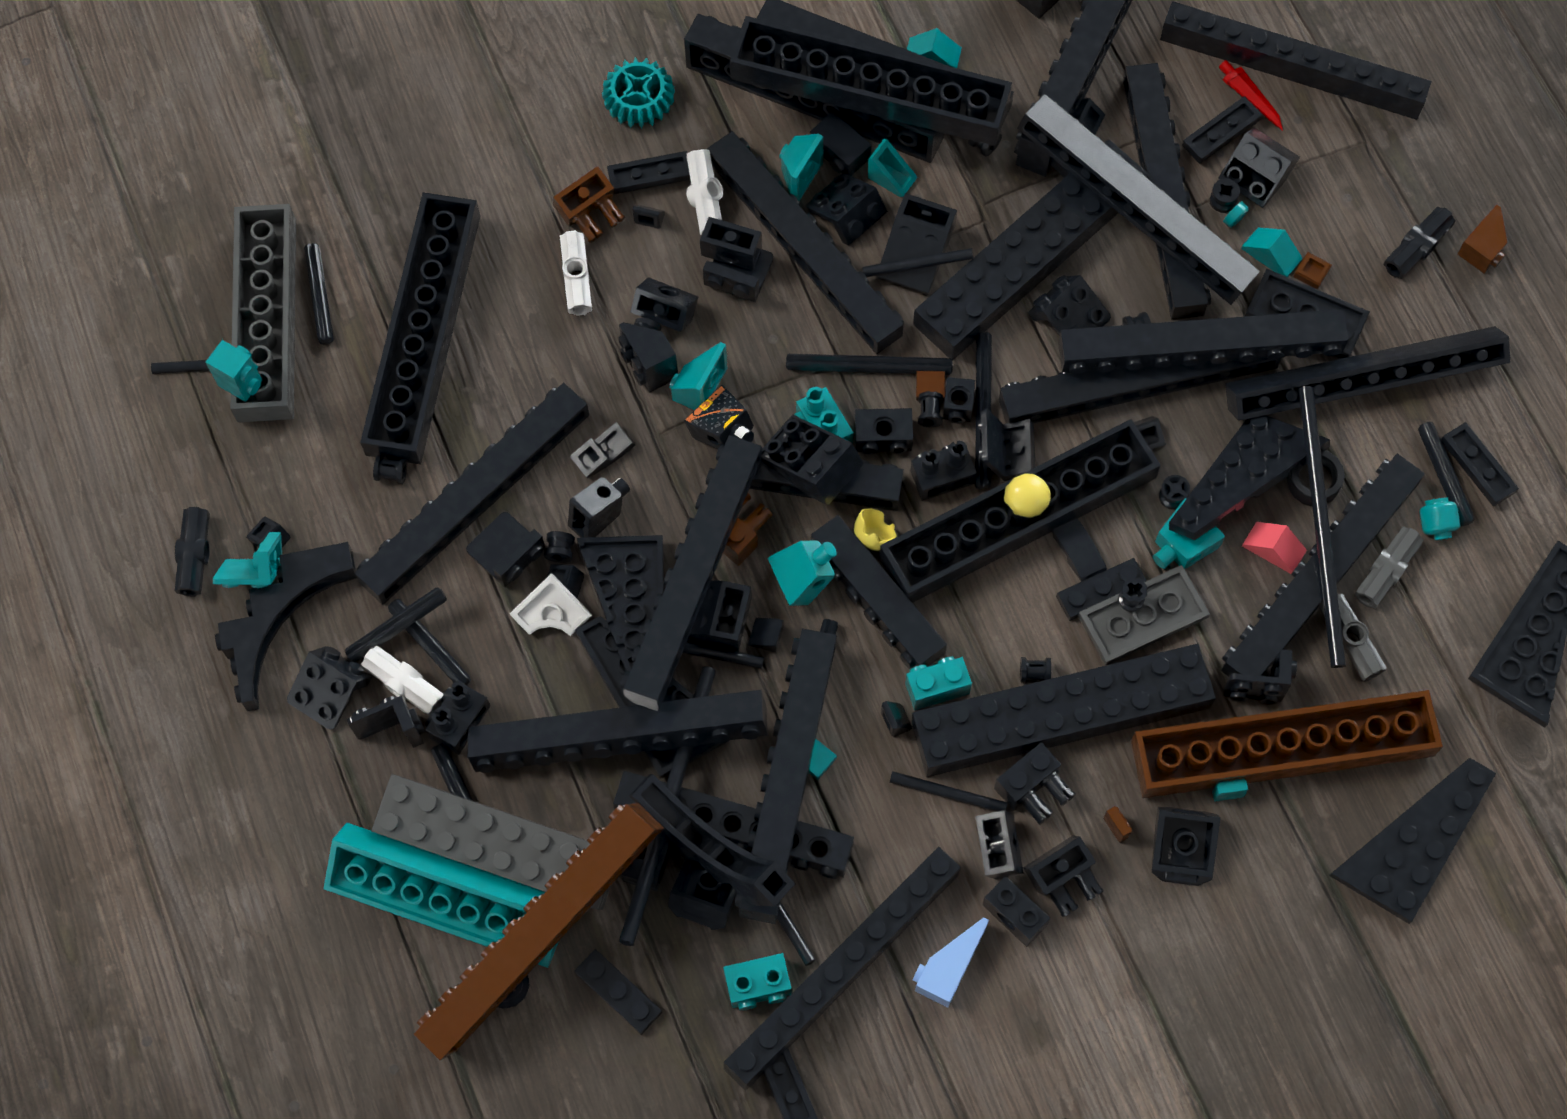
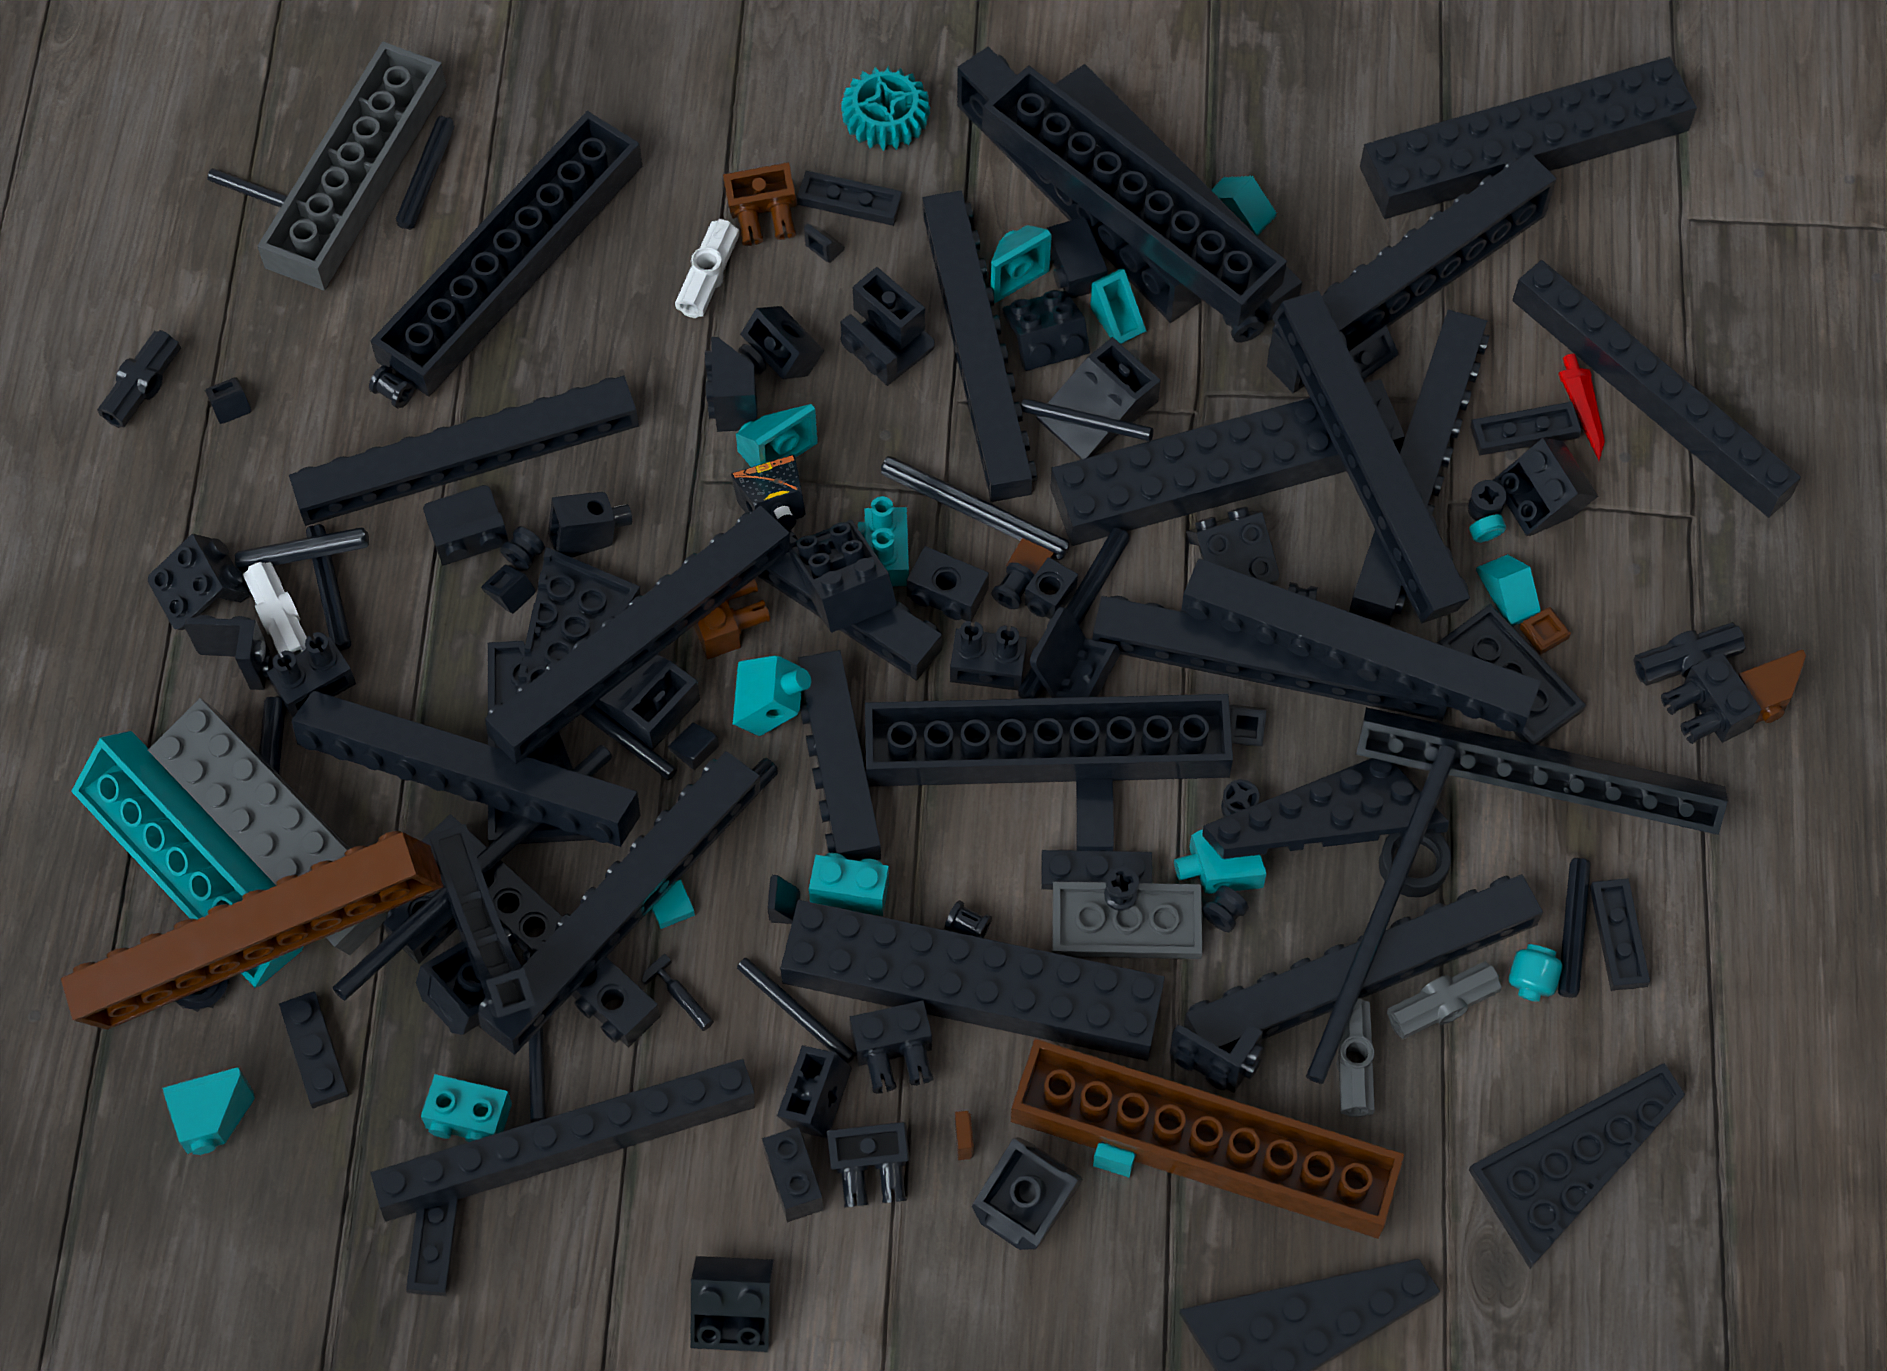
camera: 25 degrees right, 5 degrees down
(234, 370) = (278, 204): teal brick -> none
(255, 572) = (200, 422): teal bracket -> none
(300, 578) = (184, 471): black arch -> none
(552, 607) = (476, 606): white tile -> none
(571, 1076) = (208, 1109): none -> teal slope
(603, 451) = (629, 471): slope -> none
(704, 187) = (899, 236): white piece -> none
(858, 820) = (678, 992): none -> black piece
(872, 529) = (872, 683): light yellow hair -> none
(947, 967) = (685, 1197): light blue slope -> none
(1024, 1024) = (731, 1303): none -> black slope
(1027, 495) = (1059, 722): light yellow hair -> none
(1207, 574) = (1225, 909): none -> black wheel
(1276, 545) = (1325, 914): coral slope -> none
(1456, 264) = (1721, 698): none -> black brick

